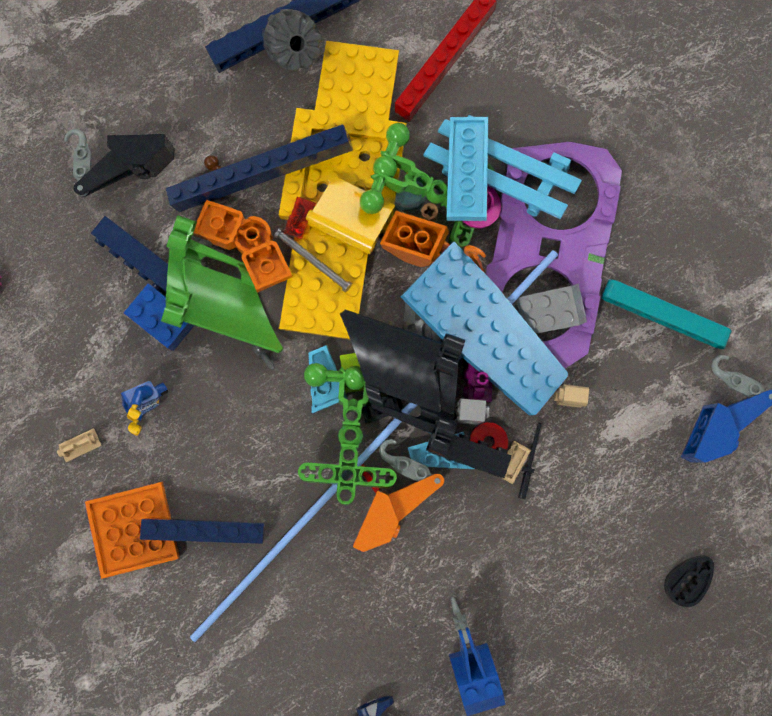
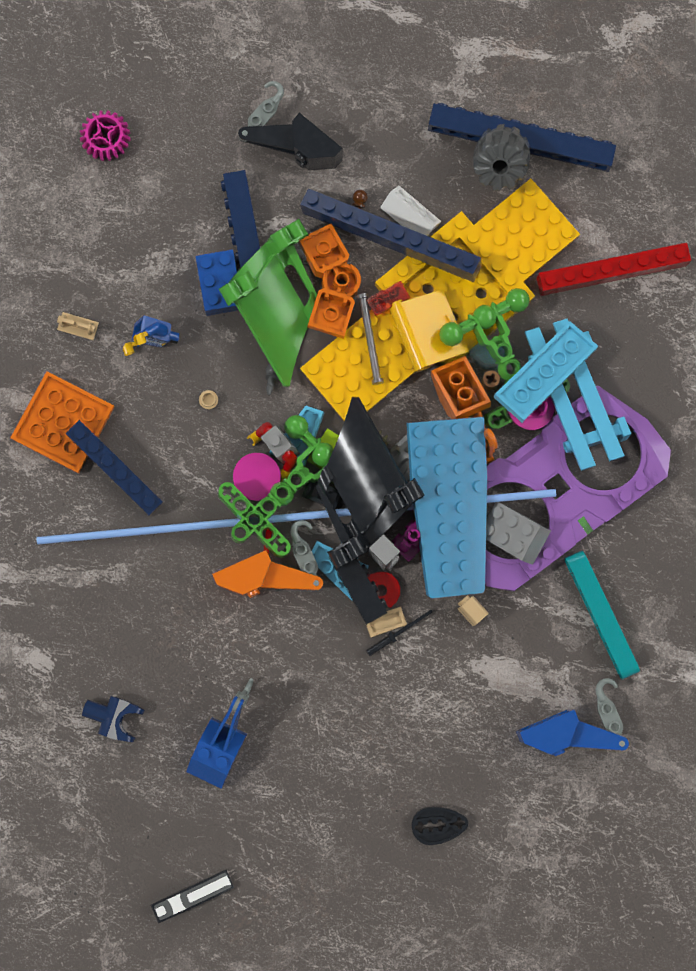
camera: 35 degrees right, 0 degrees up
(230, 413) = (208, 399): none -> tan plate
(255, 142) = (409, 212): none -> white panel
(314, 400) = (278, 444): none -> torso
(318, 439) = (256, 475): none -> dark pink piece

